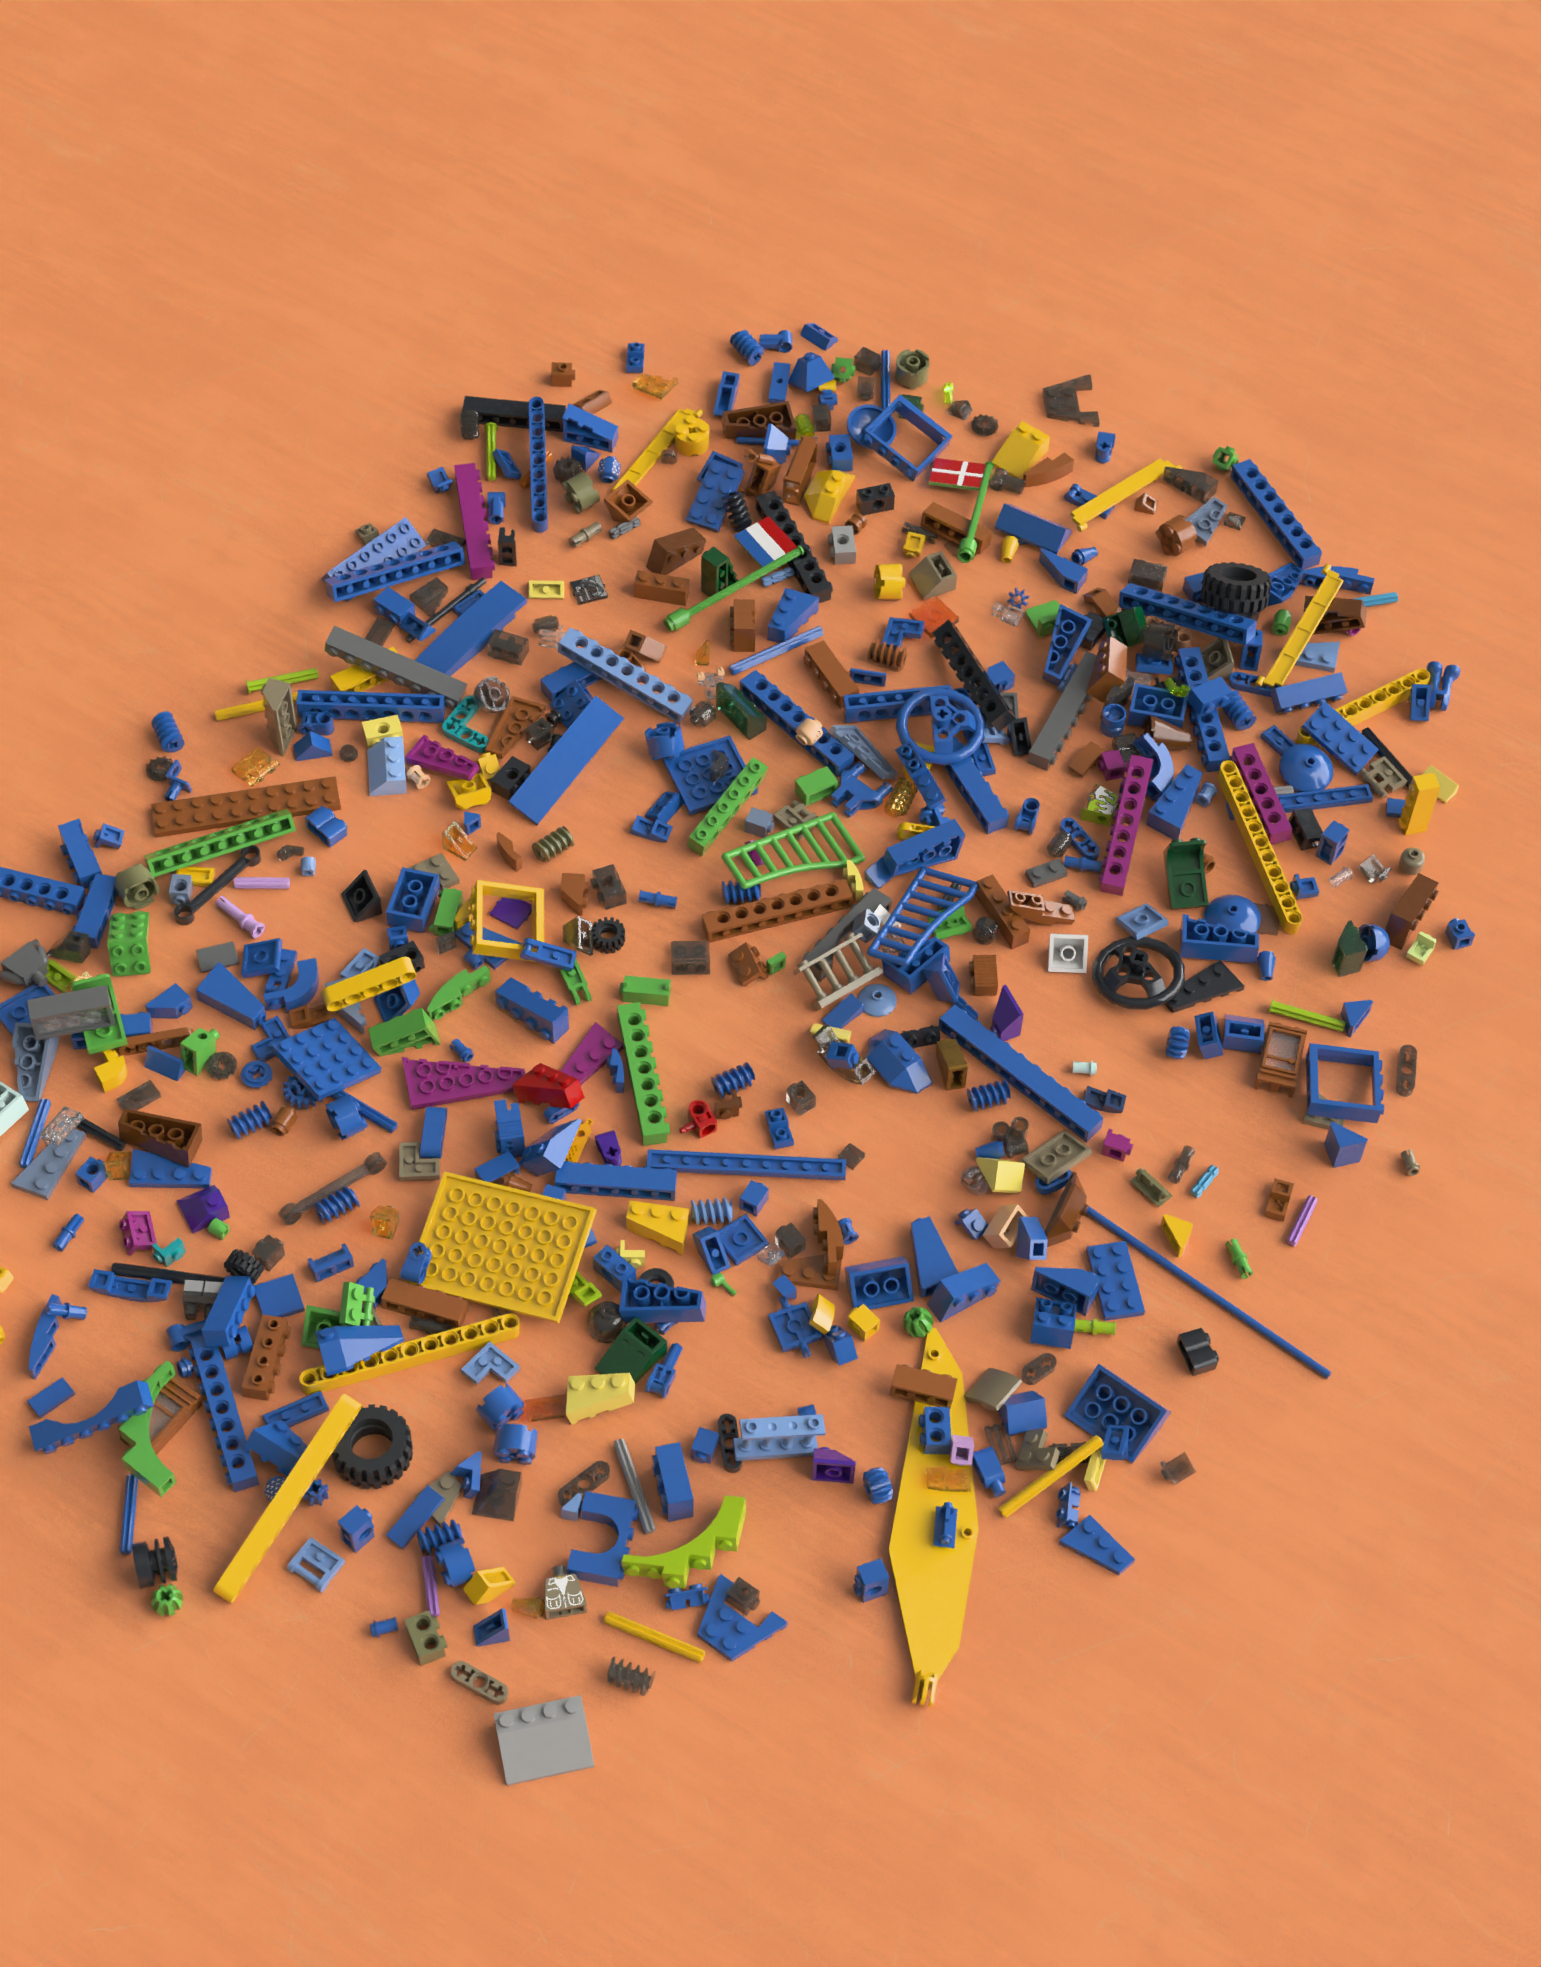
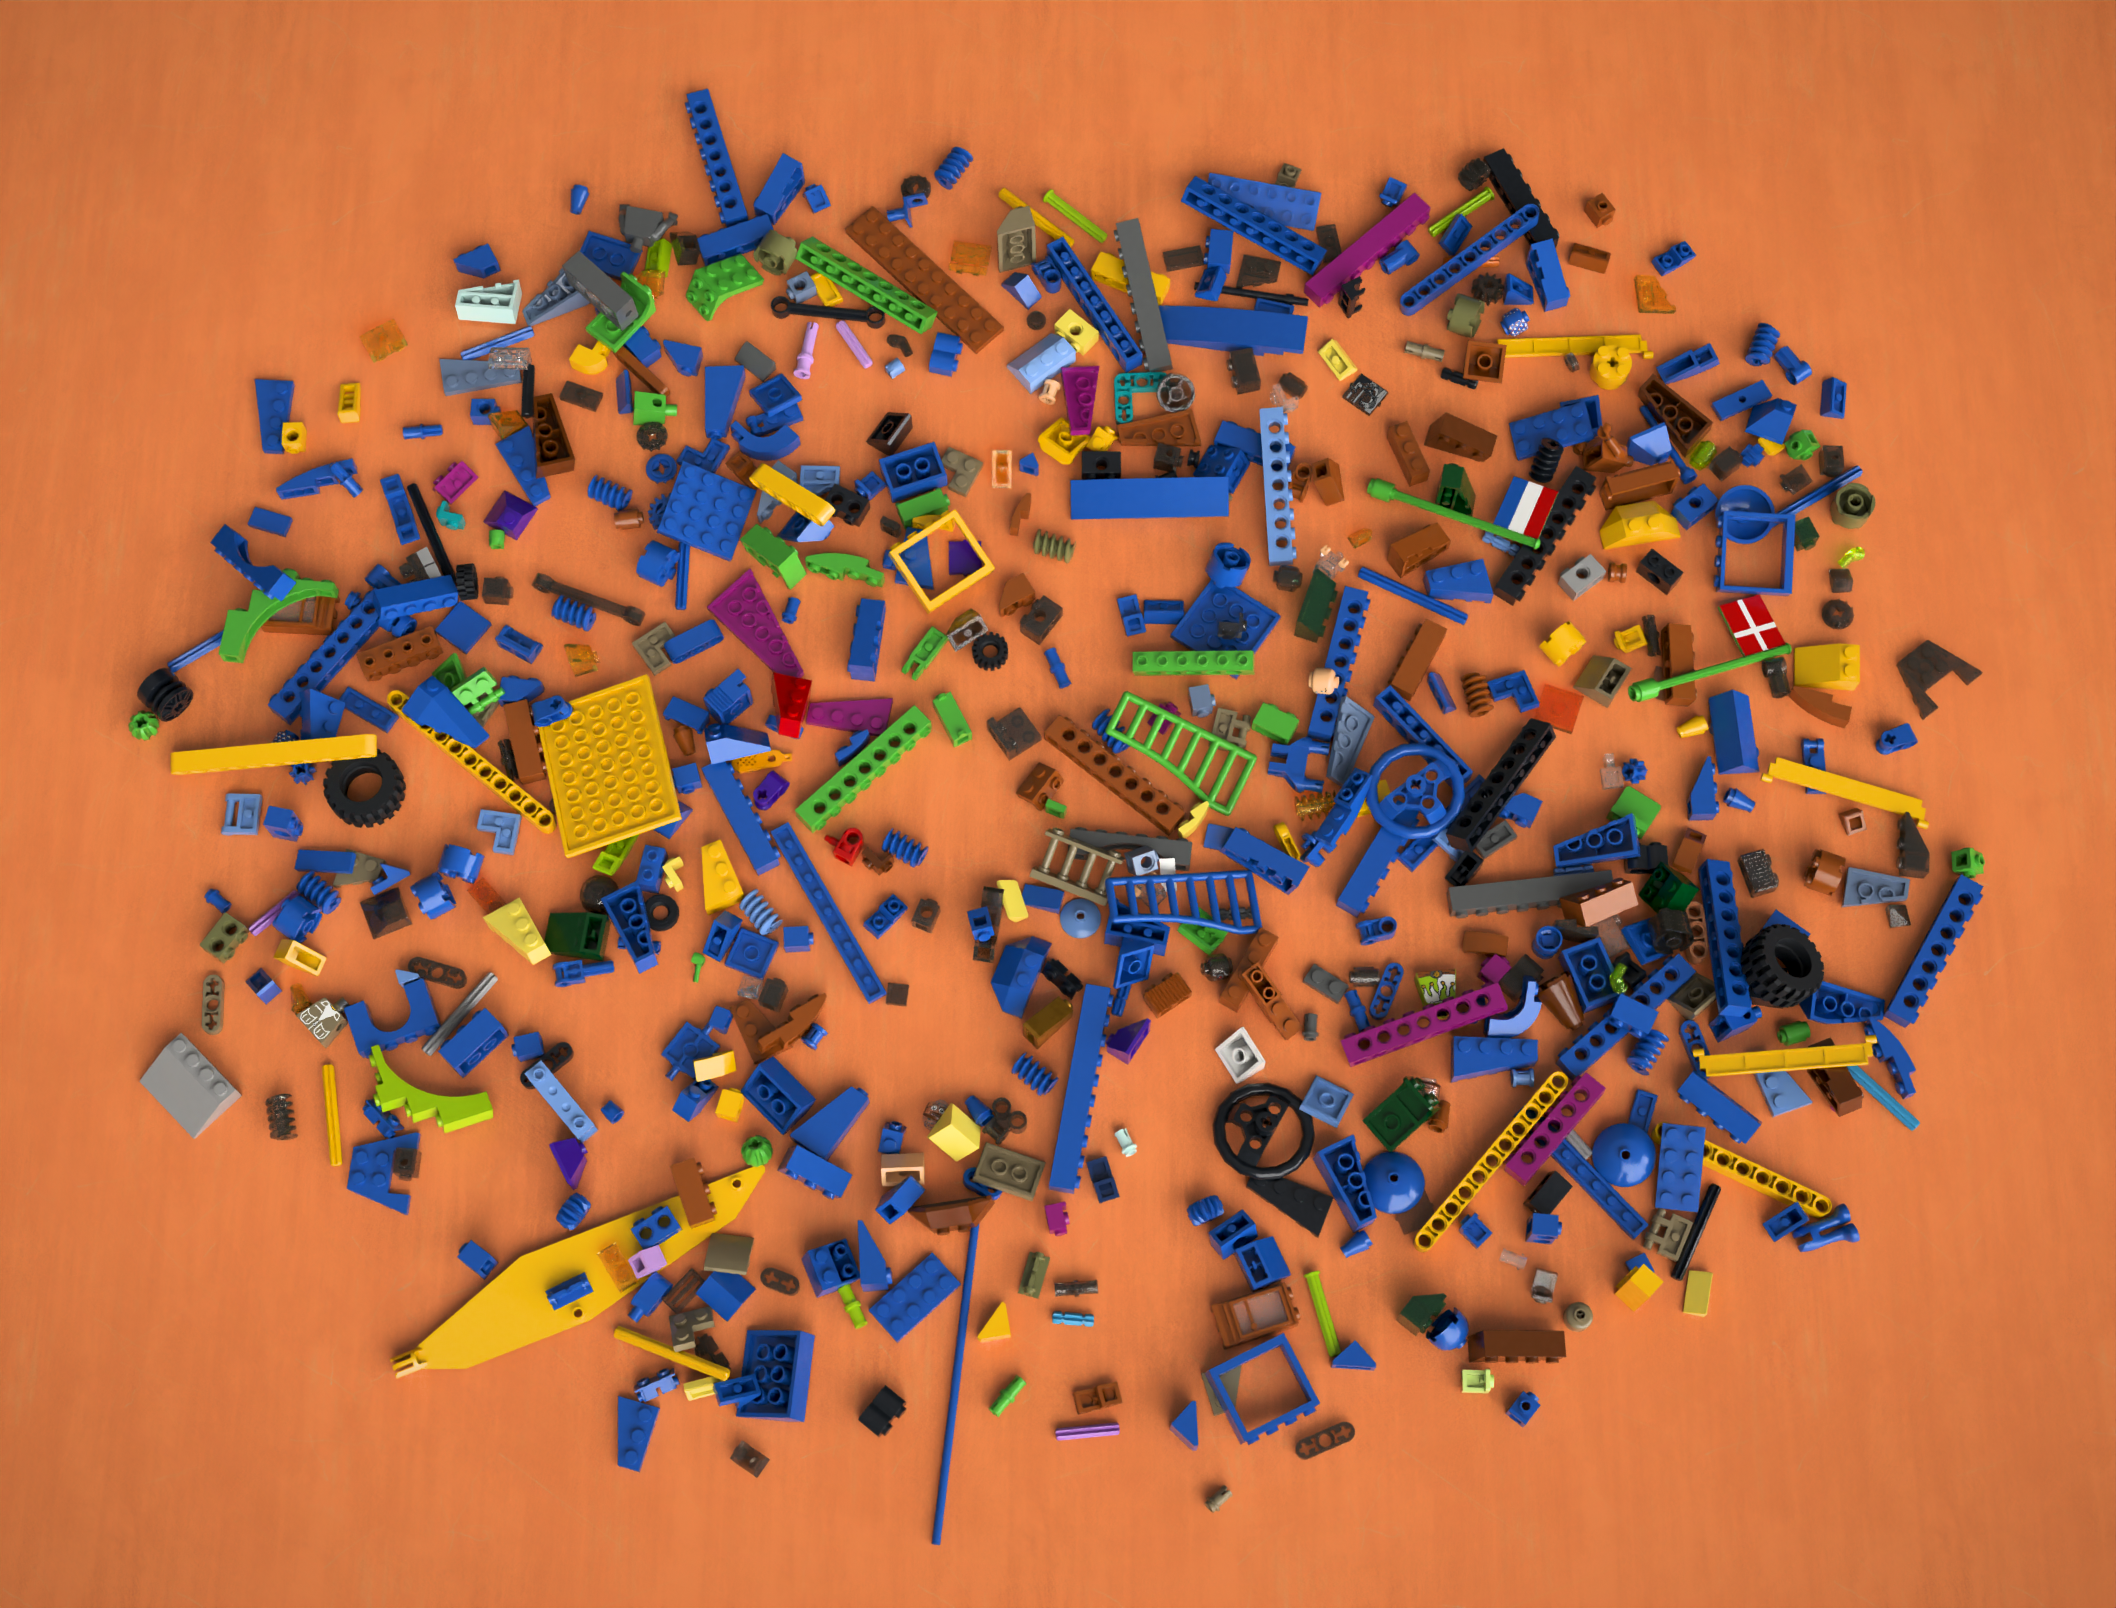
camera: 60 degrees right, 15 degrees up
(548, 954) = (926, 617): blue plate -> none

